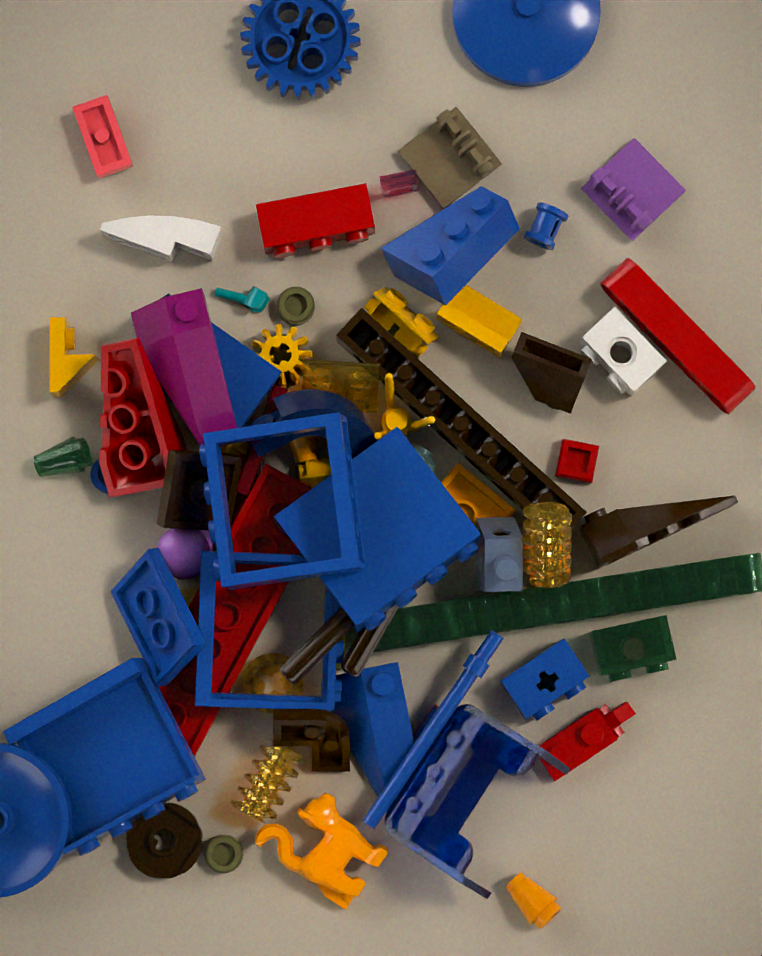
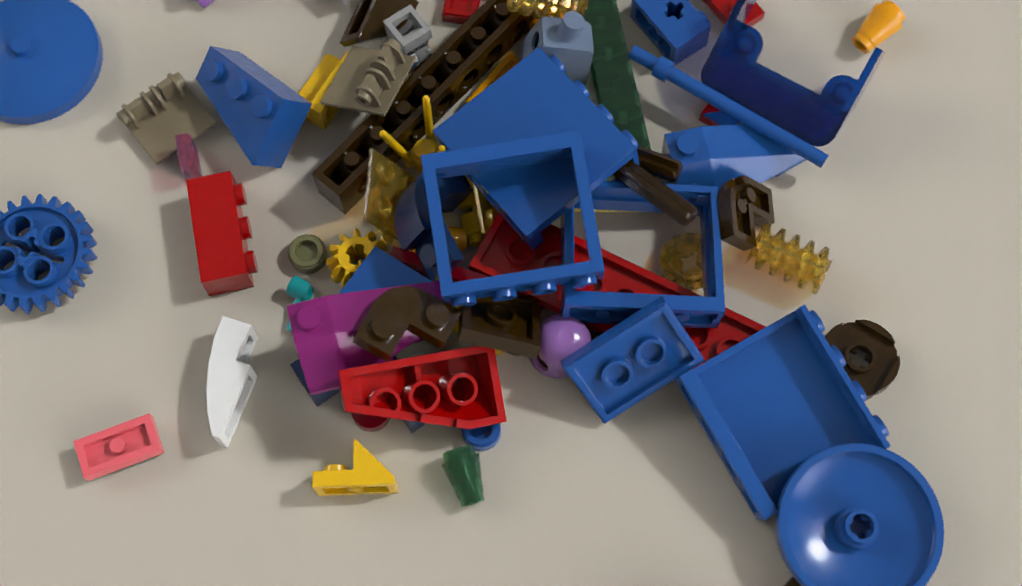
camera: 90 degrees left, 15 degrees down
(196, 393) = (404, 310): none -> dark brown plate
(224, 853) = (864, 303): olive tile -> none
(330, 855) = (855, 199): light orange animal -> none
(392, 309) = (310, 160): yellow hinge -> none
(464, 362) = (369, 79): none -> dark tan hinge
(519, 402) = (412, 36): none -> light grey leg
(545, 226) = (238, 32): blue bush -> none

